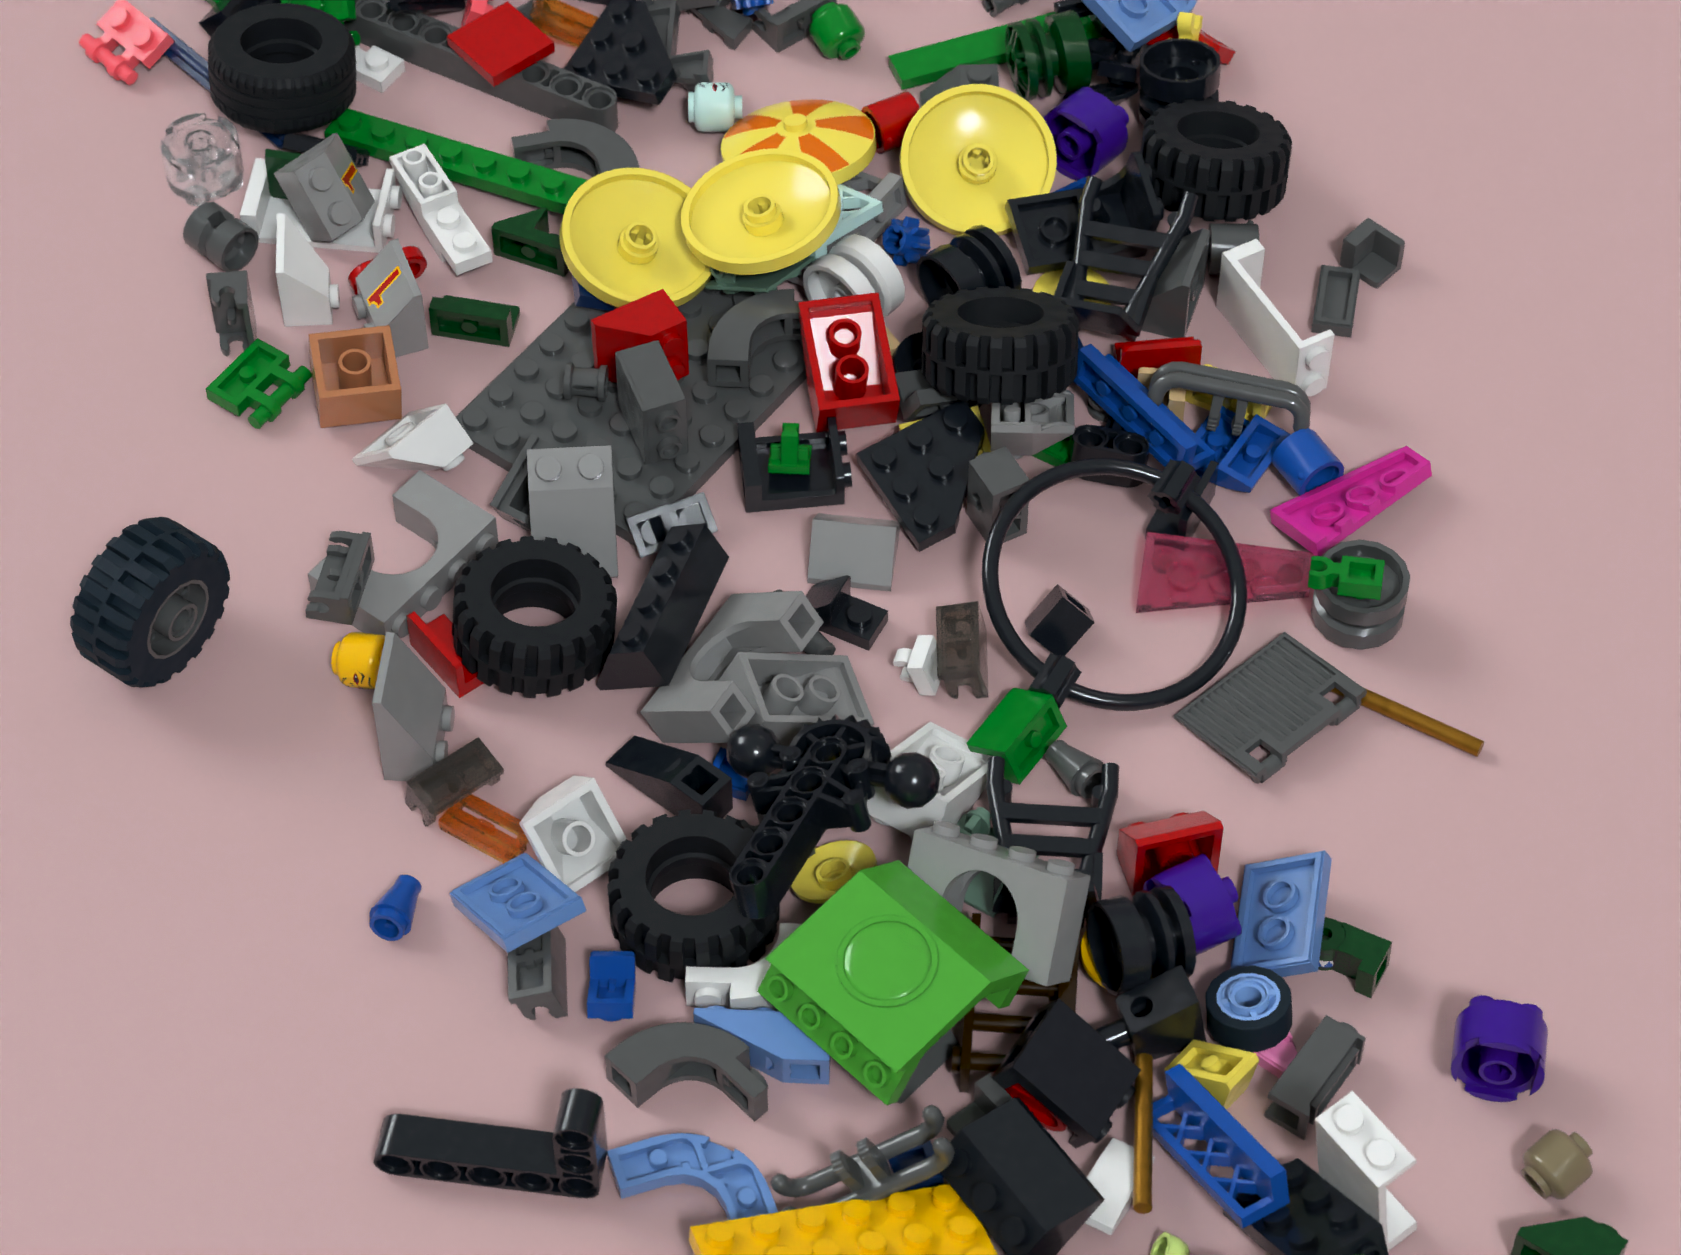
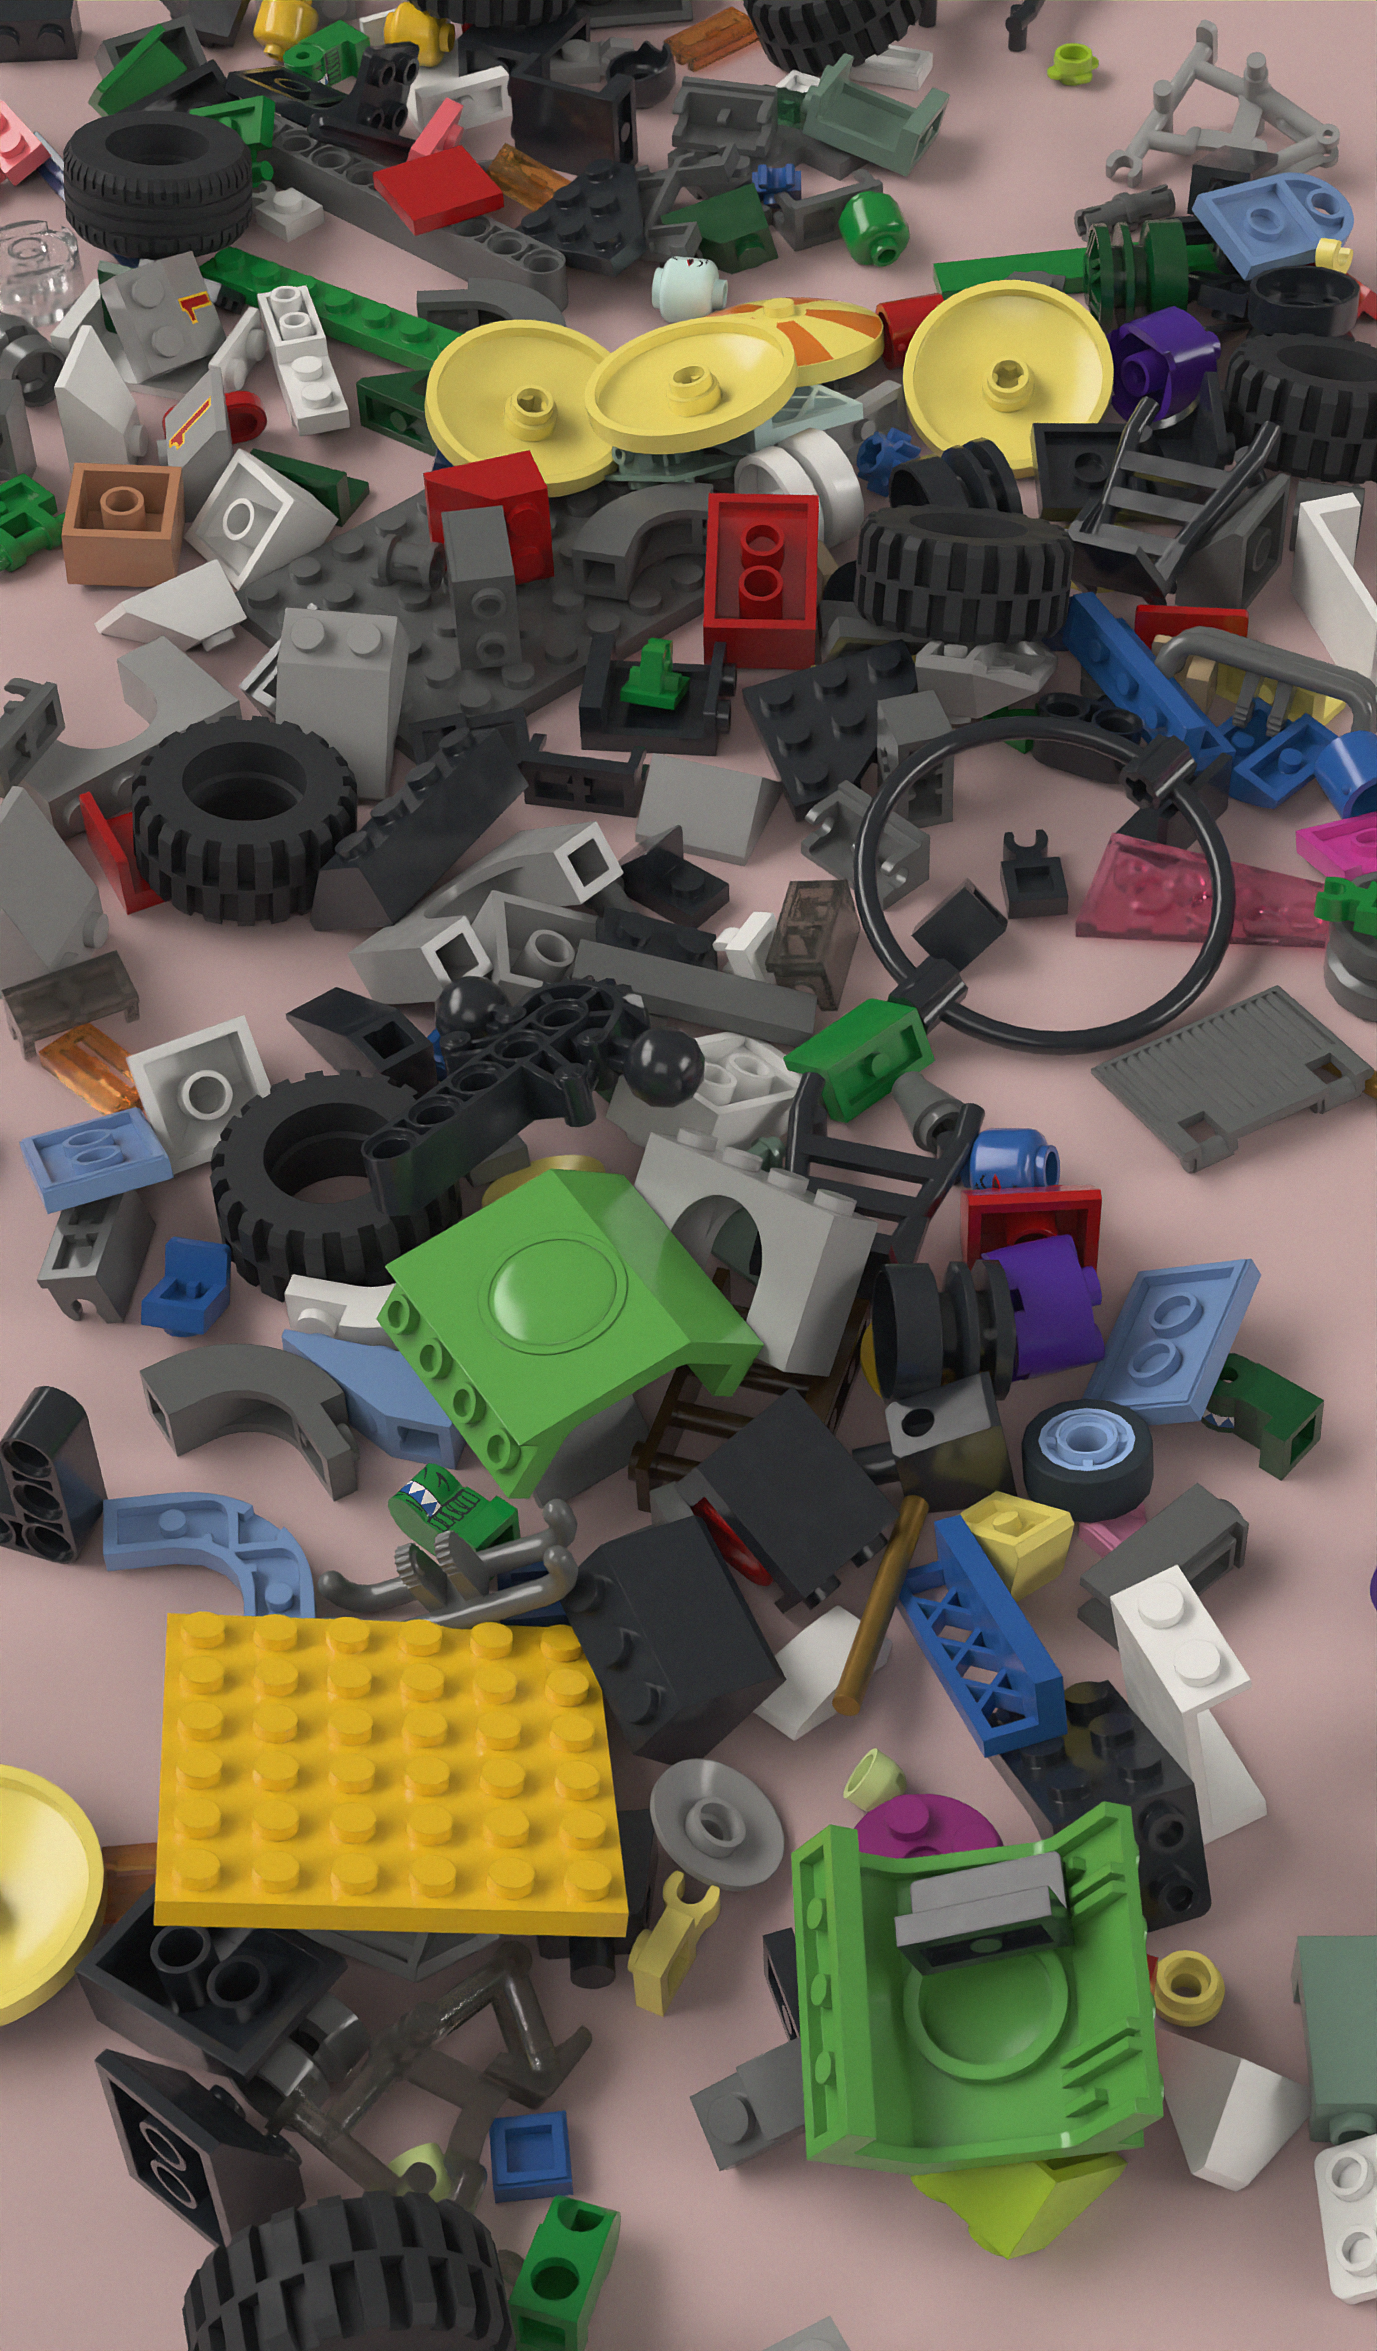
camera: 15 degrees right, 5 degrees down
(452, 359) = (257, 521): none -> white slope
(732, 45) = (731, 229): none -> dark green slope
(761, 541) = (584, 781): none -> black hinge
(843, 1121) = (439, 1503): none -> green leg
(854, 672) = (656, 937): none -> black plate
(894, 704) = (703, 994): none -> dark grey tile
(960, 563) = (902, 852): none -> dark grey hinge
(1096, 576) = (1031, 880): none -> black plate
(1144, 800) = (1011, 1160): none -> blue head

